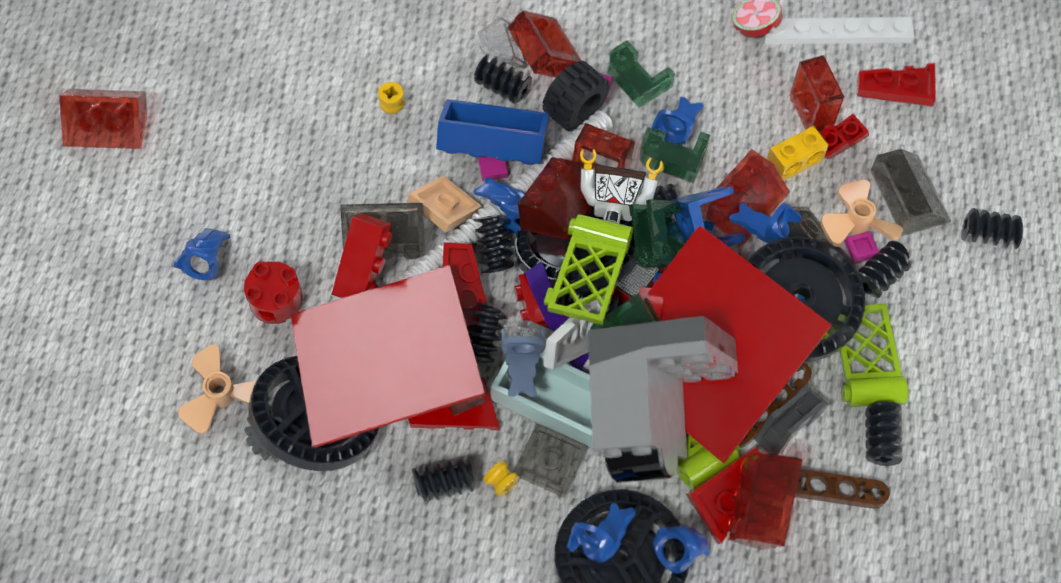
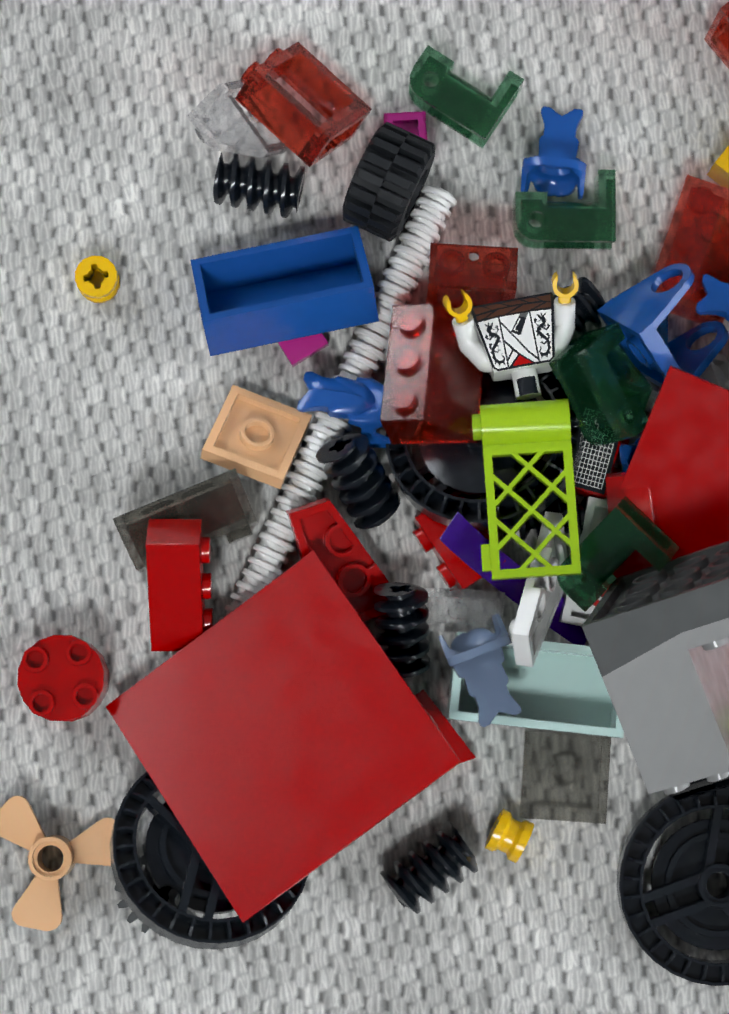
camera: 25 degrees left, 20 degrees up
(606, 538) = (692, 885): blue hair -> none

